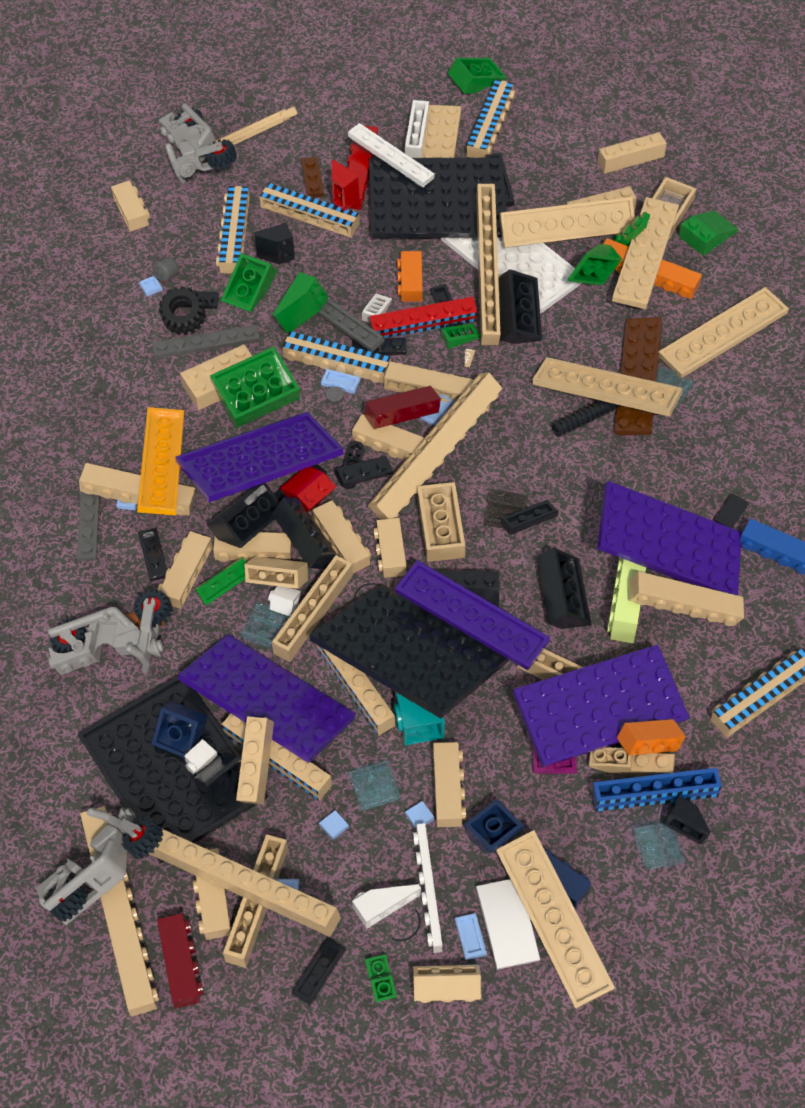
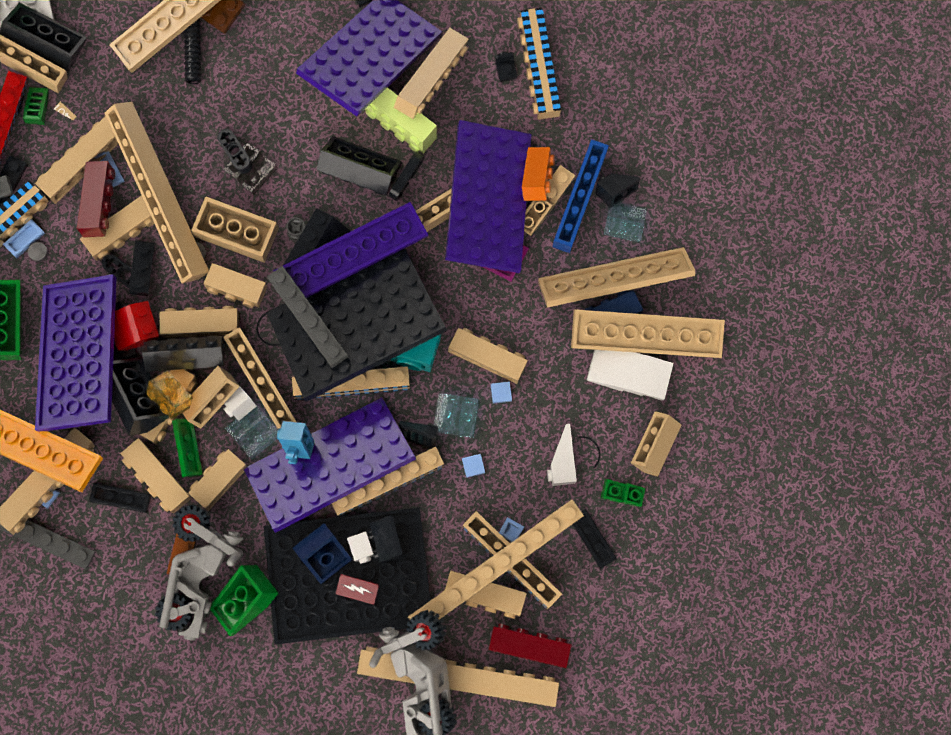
camera: 70 degrees left, 20 degrees up
(108, 687) = (243, 598): none -> green slope
(161, 776) = (357, 589): none -> slope
(206, 618) = (217, 479): none -> tan brick
(255, 760) = (393, 502): tan brick -> none
(258, 537) = (169, 395): none -> clear yellow brick
(271, 654) = (295, 441): none -> dark azure brick
(338, 761) = (424, 434): none -> black slope
(387, 603) = (307, 317): none -> dark grey plate
(428, 897) = (576, 420): white plate -> none
(470, 936) = (623, 406): light blue tile -> none
(472, 564) = (295, 225): none -> dark grey wheel
(492, 827) = (550, 339): dark blue slope -> none
(501, 499) = (236, 157): none -> black beam
(529, 517) = (271, 153): black tile -> none
(572, 632) = (408, 172): none -> black beam
(597, 863) = (616, 277): none -> tan plate
(742, 665) = (505, 66): none -> black bracket

